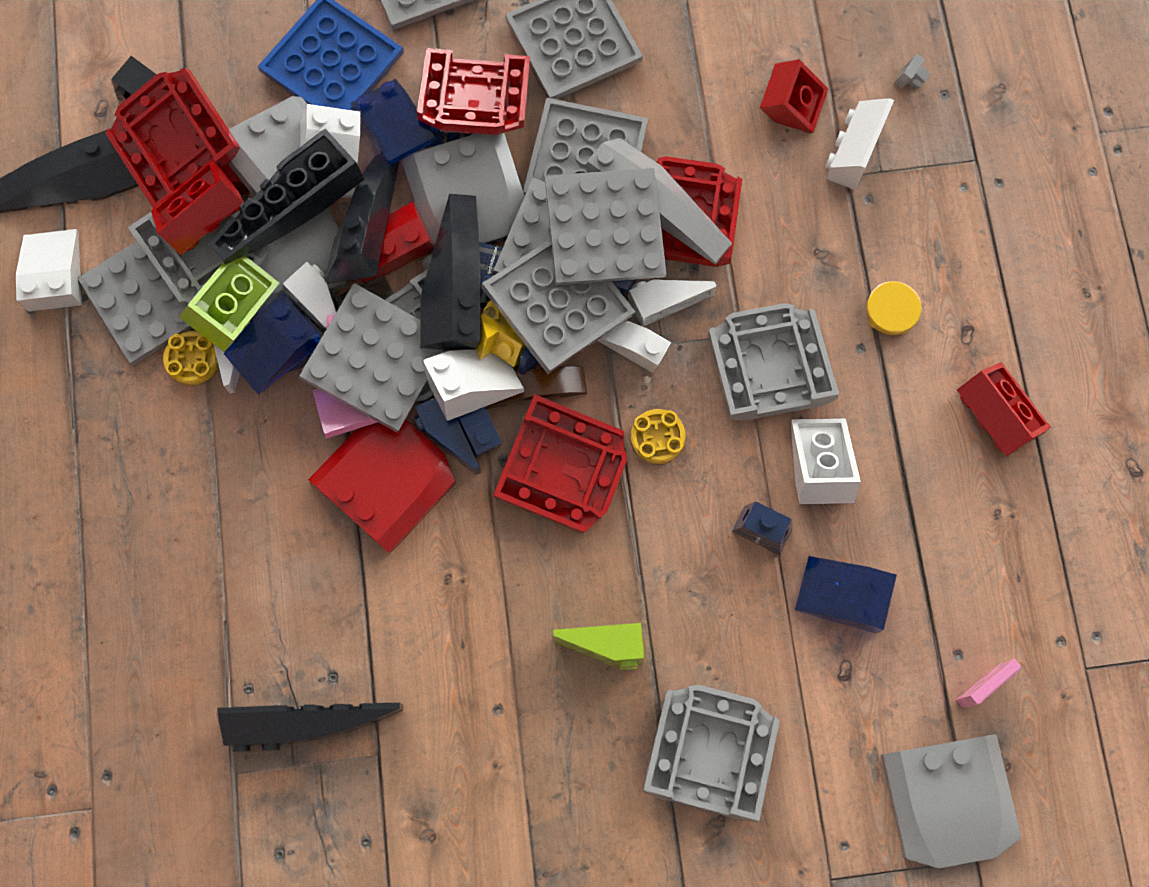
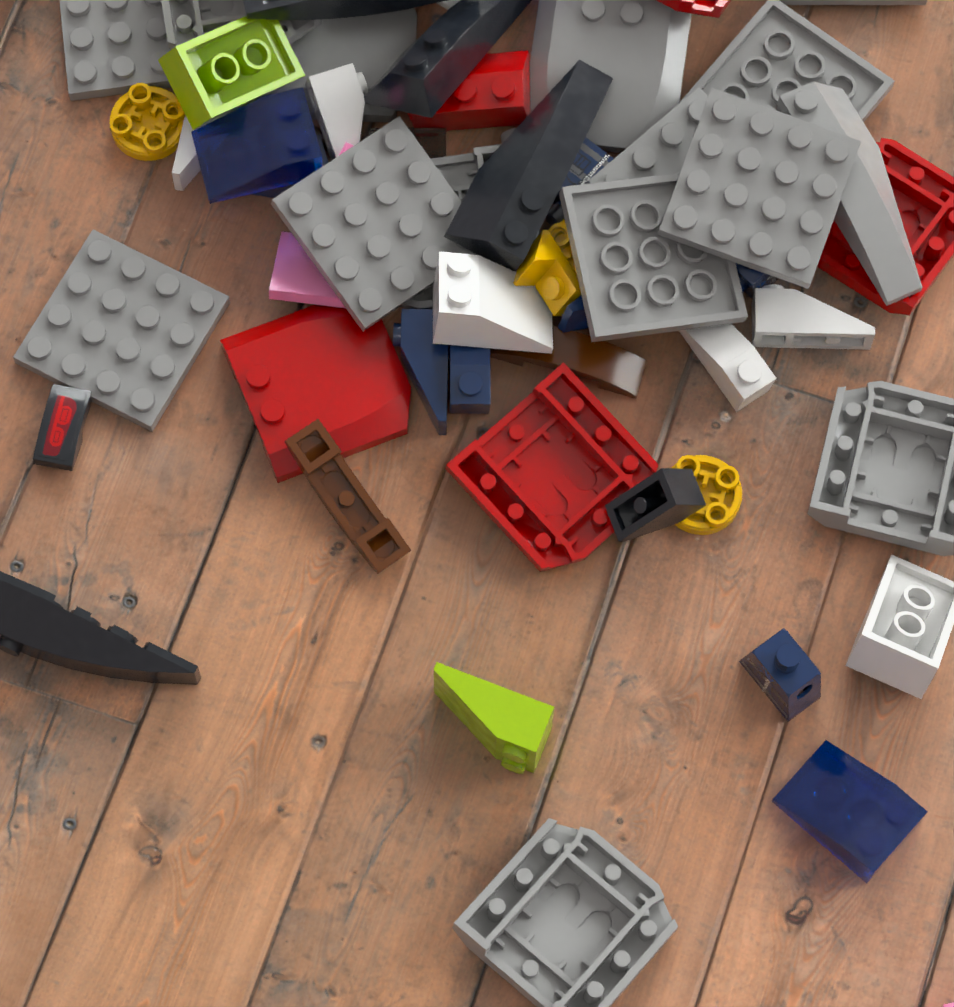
camera: 25 degrees right, 5 degrees down
(233, 585) = (62, 427): none -> slope
(240, 502) = (122, 329): none -> light grey plate
(439, 545) = (346, 497): none -> reddish brown slope
(635, 458) = (655, 503): none -> black slope

